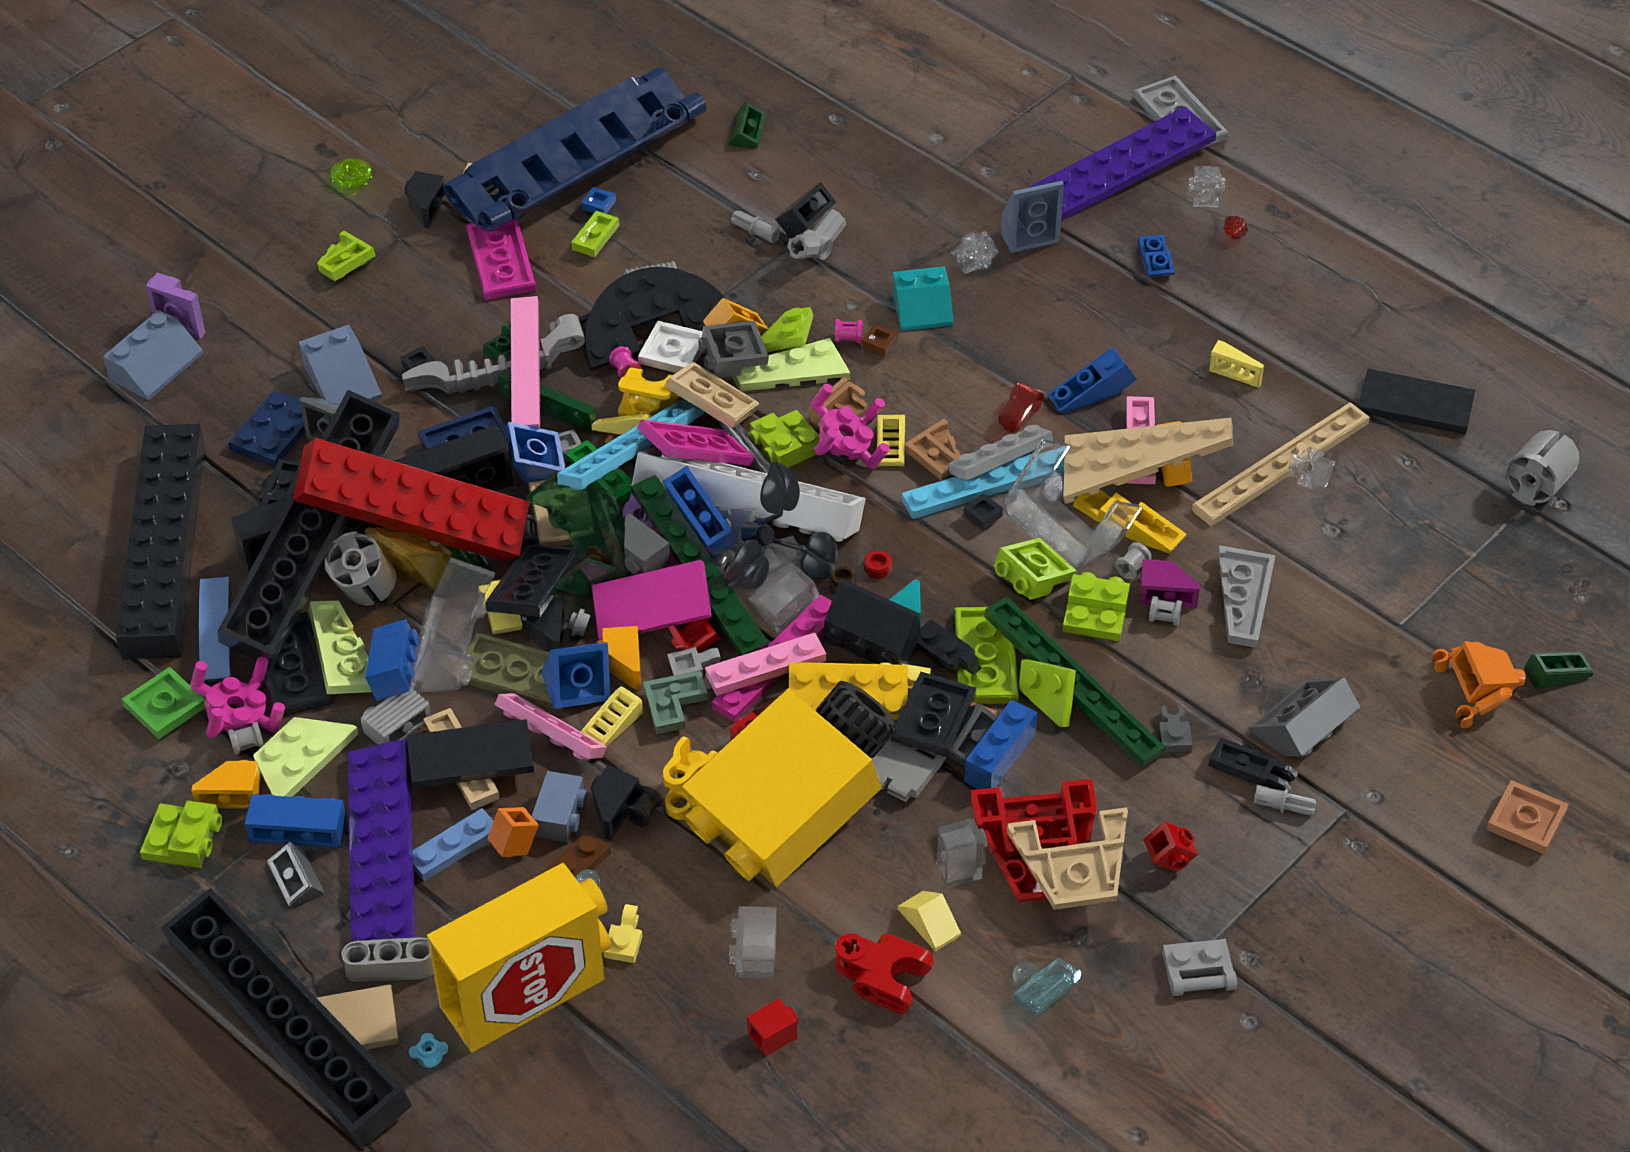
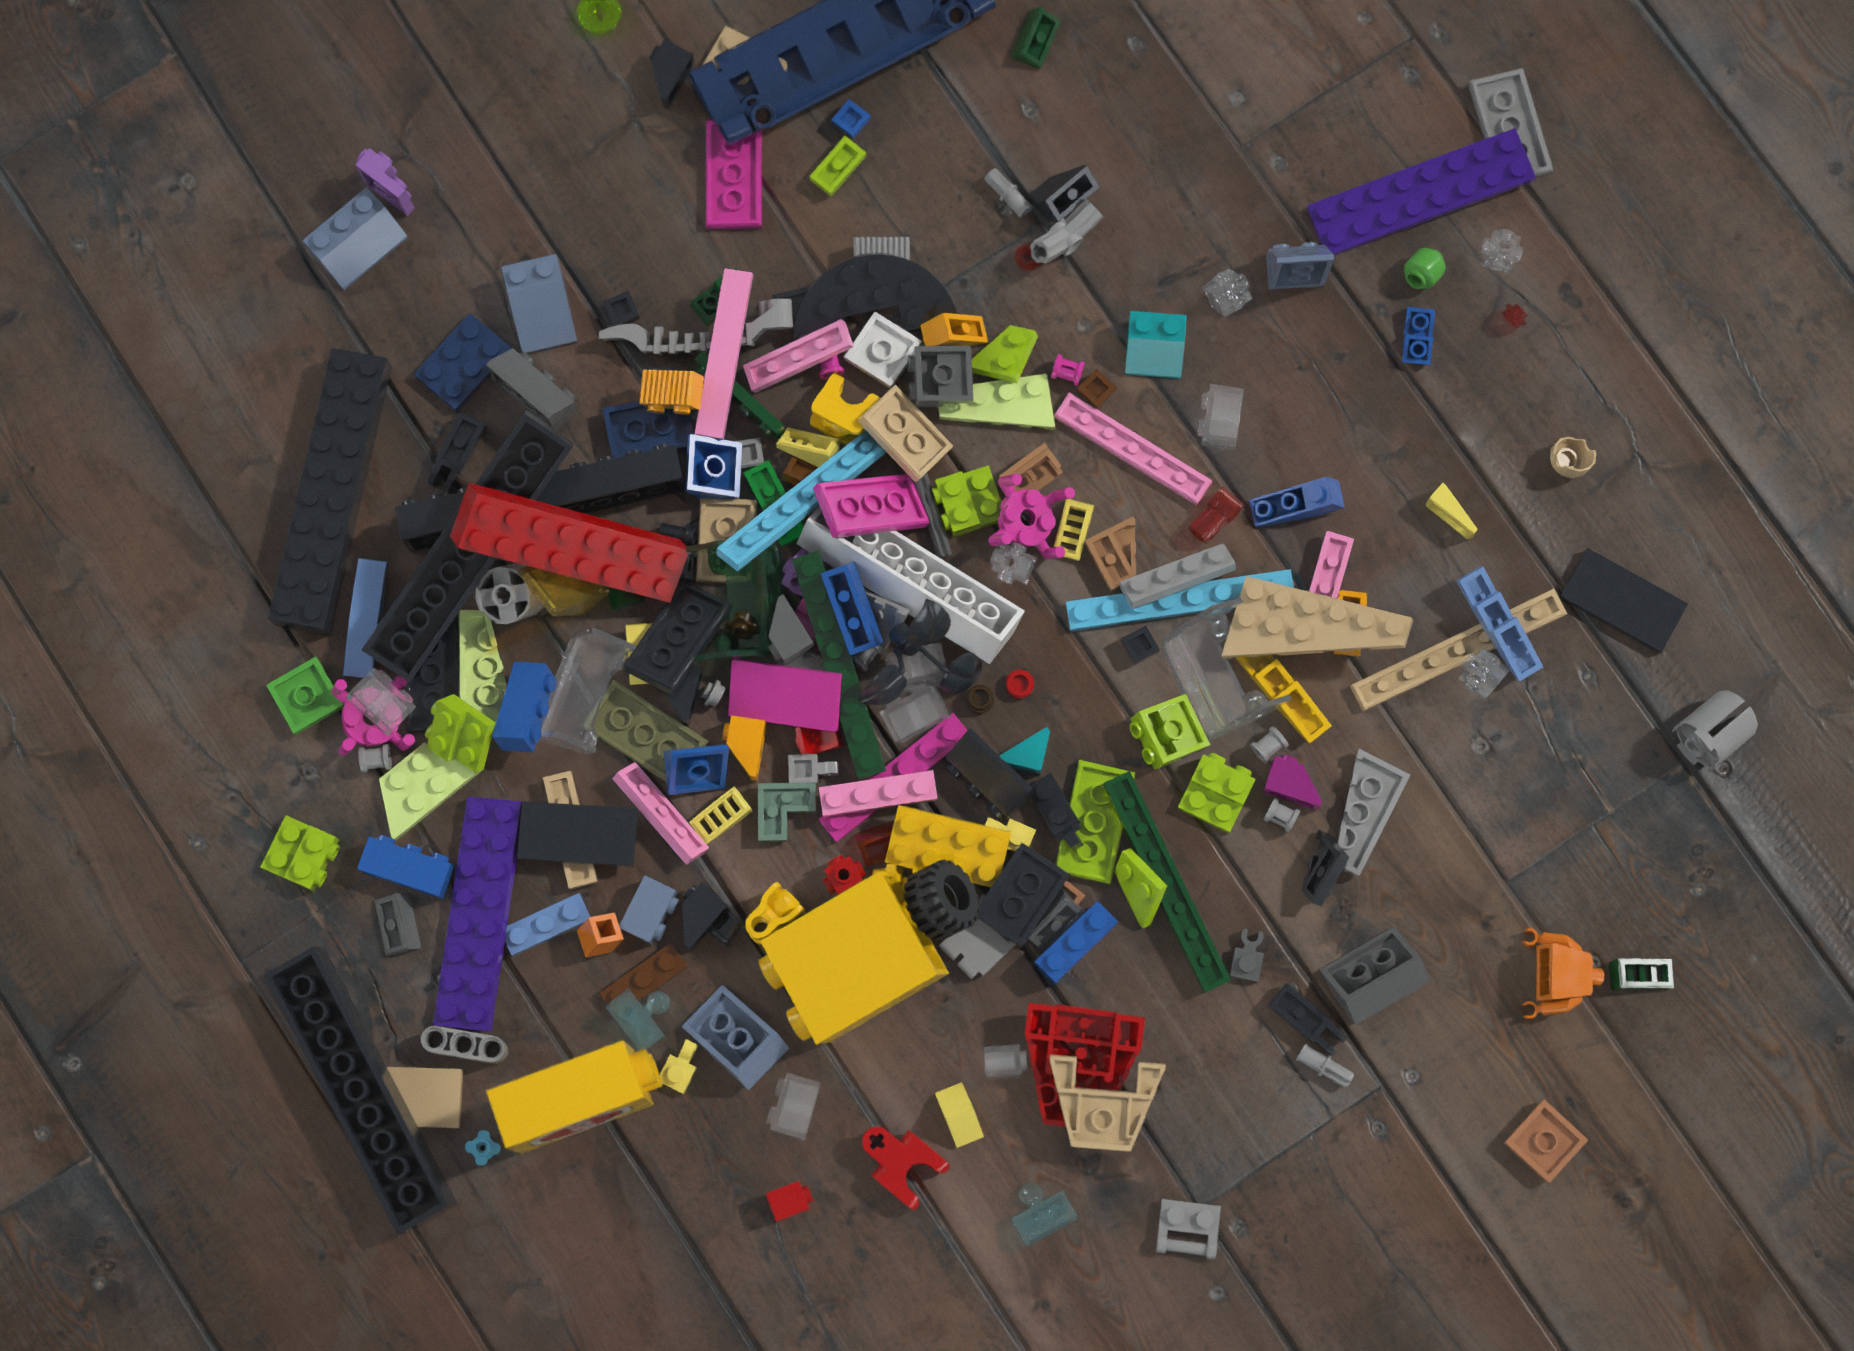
camera: 15 degrees right, 30 degrees up
(229, 785) = (353, 812): light orange slope -> none
(244, 679) = (381, 701): none -> clear brick
(331, 691) = (460, 733): none -> lime plate
(345, 256) = (571, 138): lime wing -> none
(395, 717) = (516, 770): light grey brick -> none
(481, 394) = (671, 390): none -> light orange brick
(596, 356) = (798, 356): none -> bright pink plate
(679, 895) = (735, 1037): none -> sand blue slope
(786, 264) = (1021, 251): none -> clear red plate
(843, 469) = (1019, 570): none -> clear brick
(927, 378) = (1133, 449): none -> bright pink tile
(1000, 337) = (1221, 416): none -> clear brick
(1143, 209) = (1424, 268): none -> bright green head
(1171, 846) = (1200, 1099): red brick -> none
(1224, 634) = (1324, 869): none -> black wing
(1311, 429) = (1499, 623): none -> medium blue slope
(1326, 309) = (1572, 457): none -> tan hair

